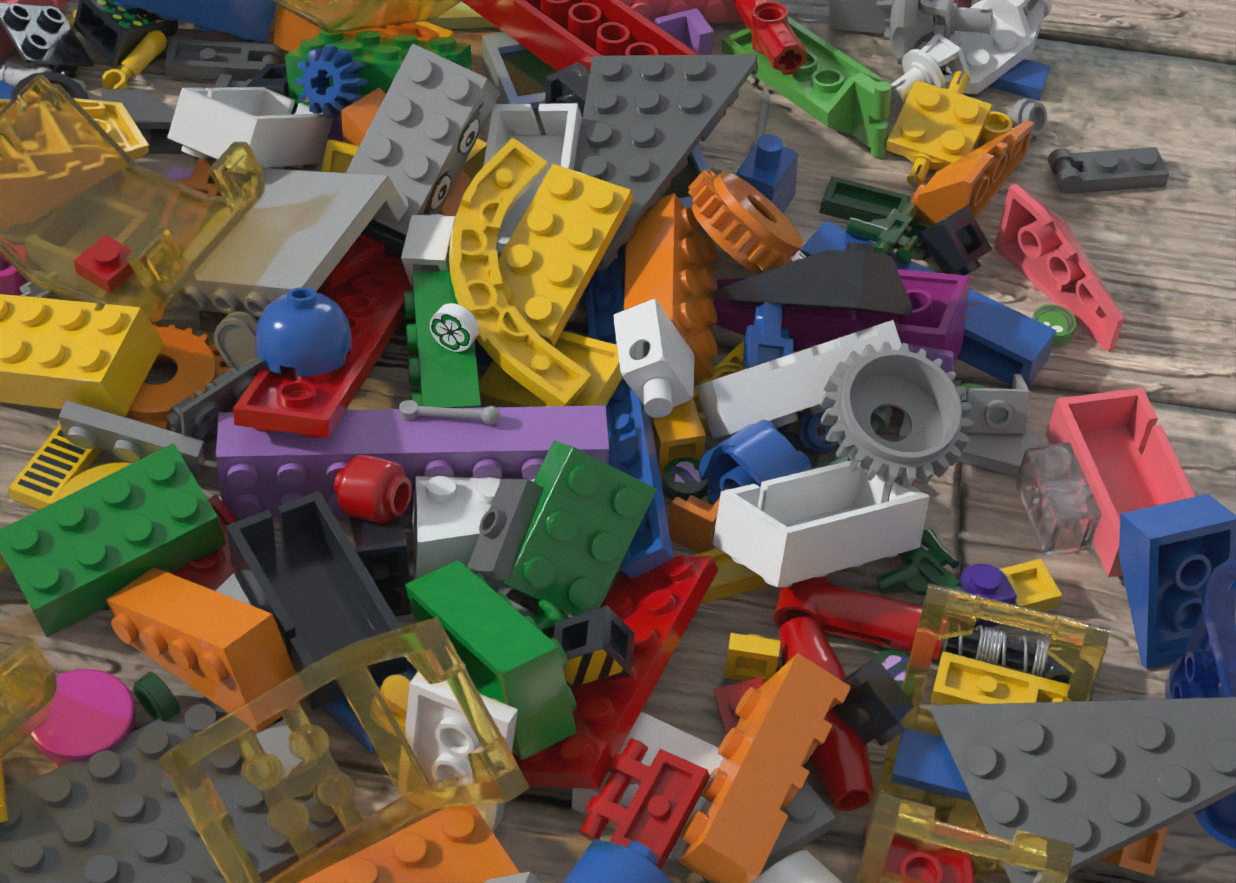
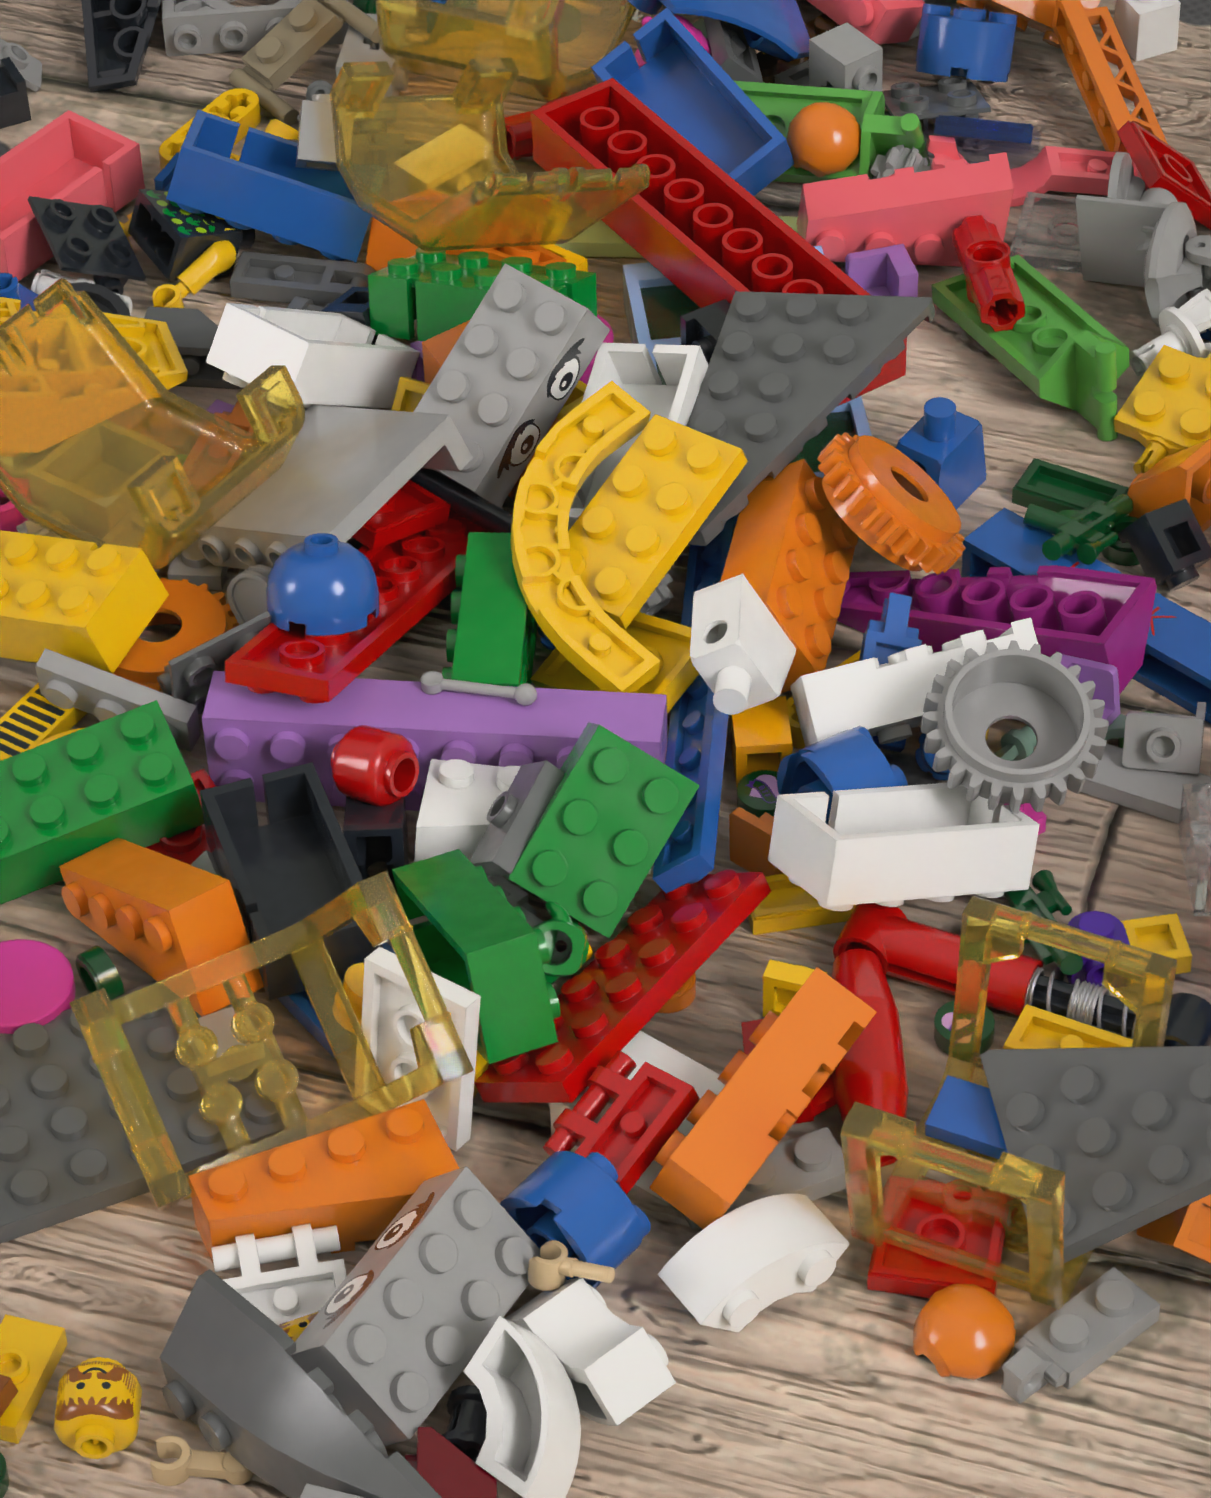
camera: 15 degrees right, 5 degrees down
(105, 264) = (110, 503): red plate -> none
(316, 80) = (414, 306): blue gear -> none
(427, 244) = (490, 500): white brick -> none
(454, 327) = (501, 593): white tile -> none
(595, 646) = (594, 951): black brick -> none
(762, 118) = (972, 369): light grey hinge -> none
(828, 281) = (969, 572): black wedge -> none
(874, 704) = (912, 1042): black brick -> none

